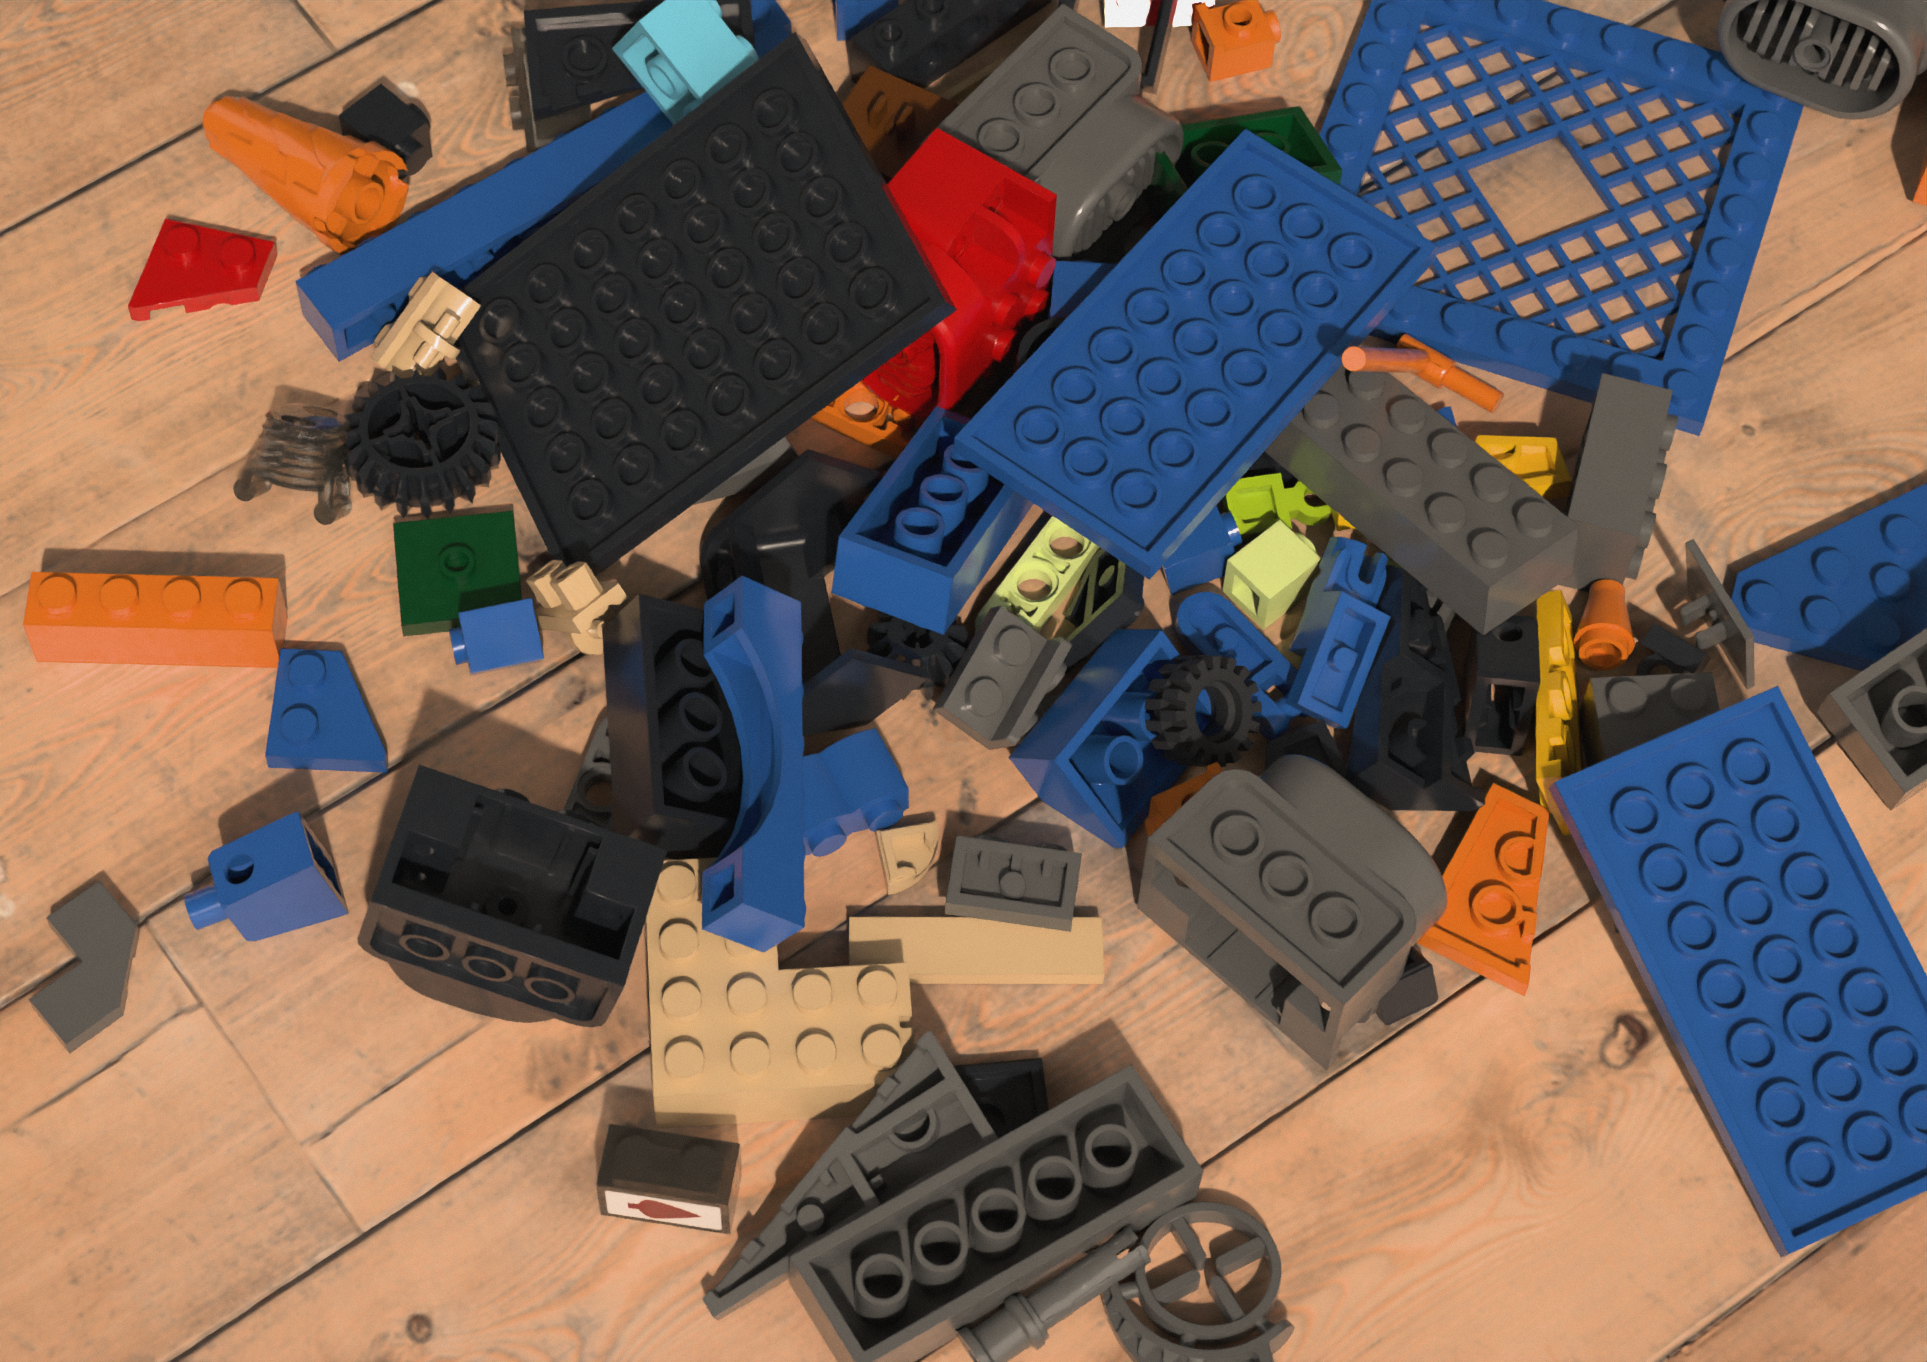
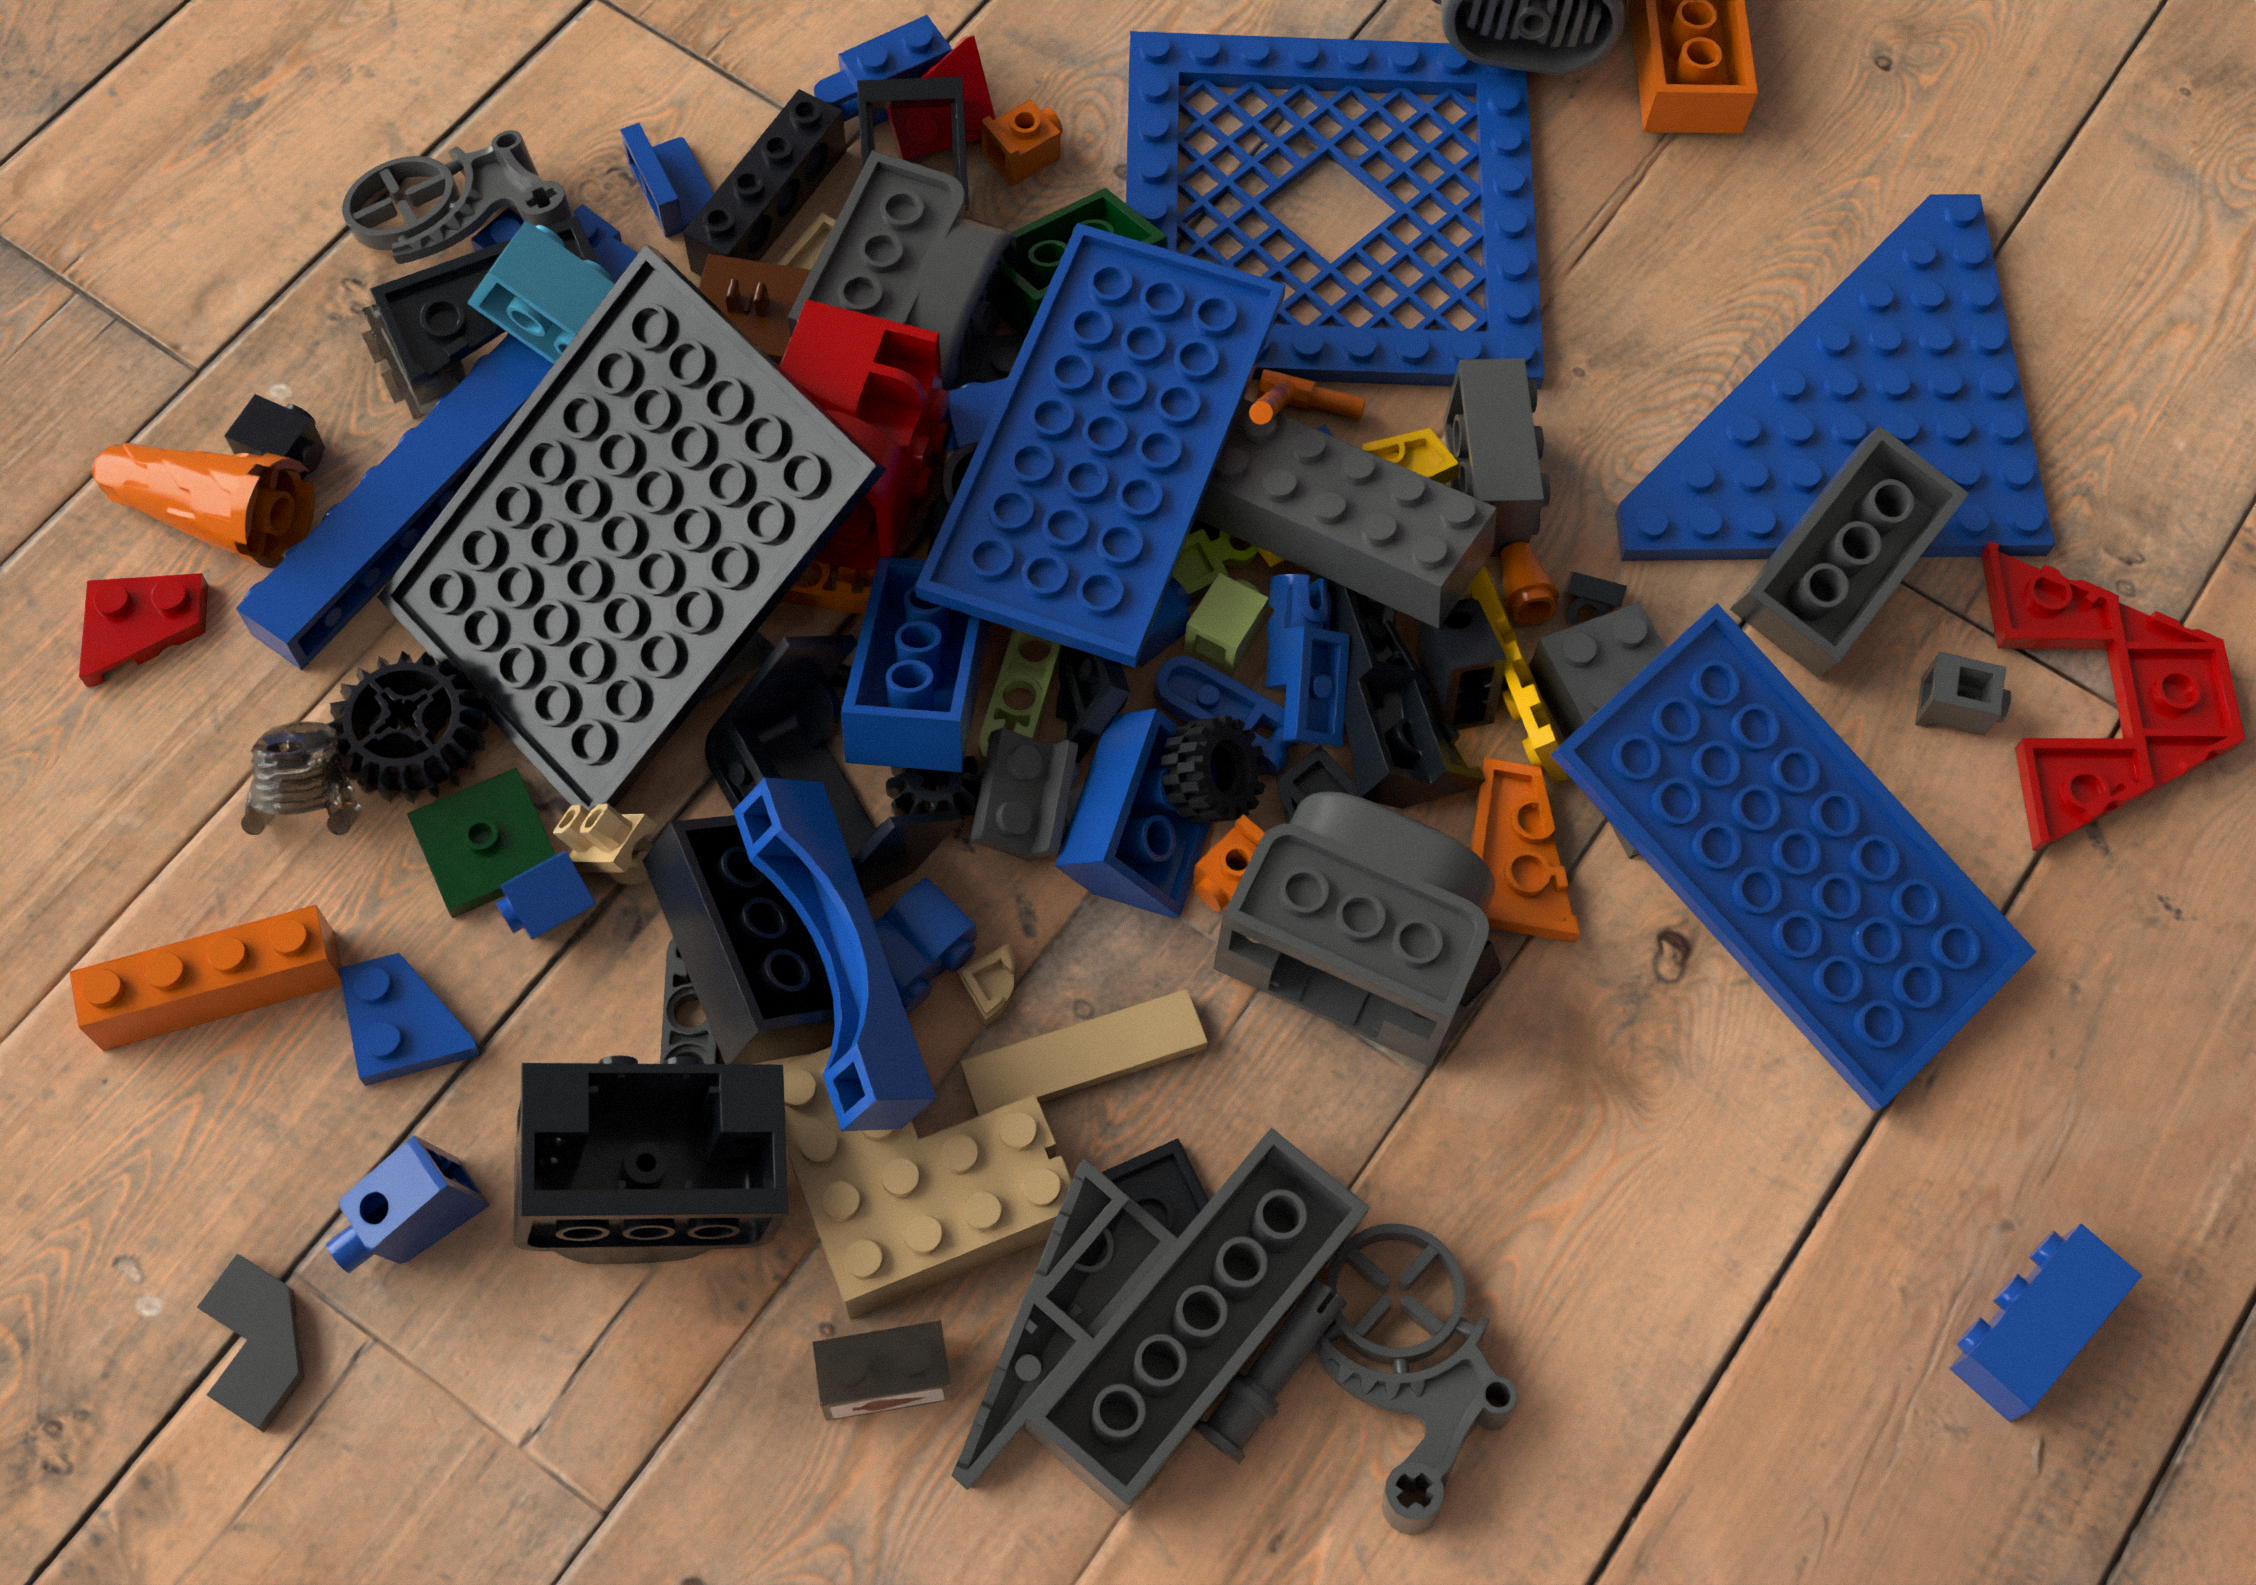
camera: 20 degrees left, 5 degrees up
(425, 328) = (375, 618): tan hips -> none
(1013, 882) = (1100, 983): dark grey bracket -> none
(1719, 614) = (1624, 547): dark grey piece -> none

